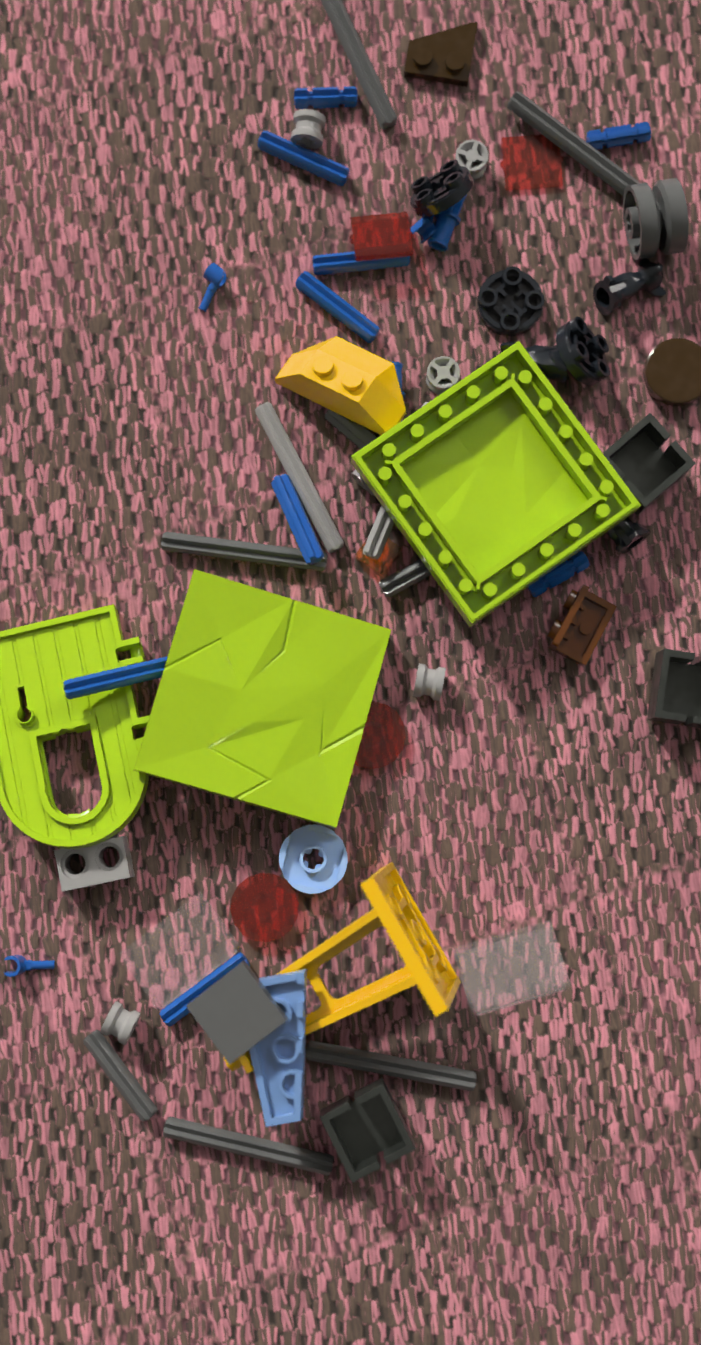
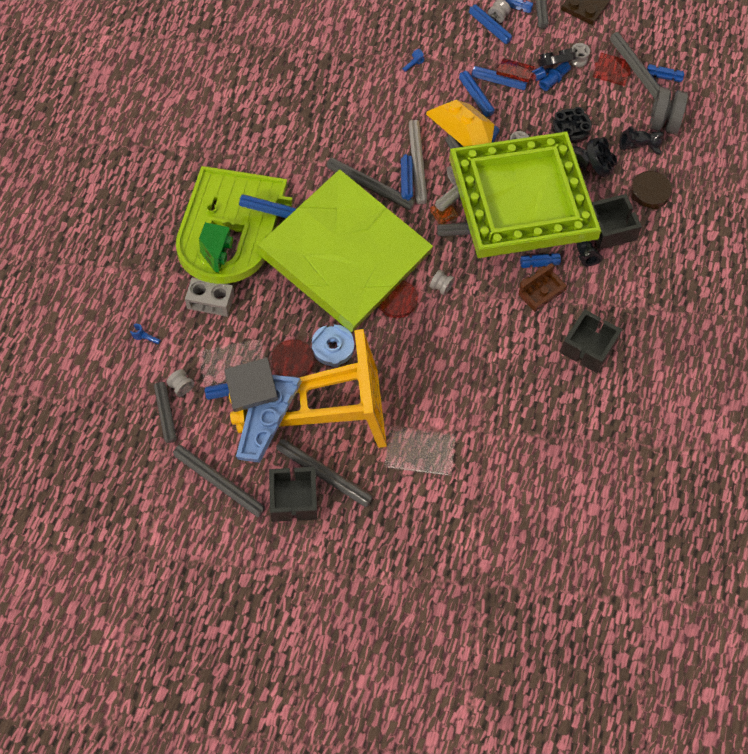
camera: 20 degrees right, 20 degrees down
(64, 790) = (214, 244): none -> green slope

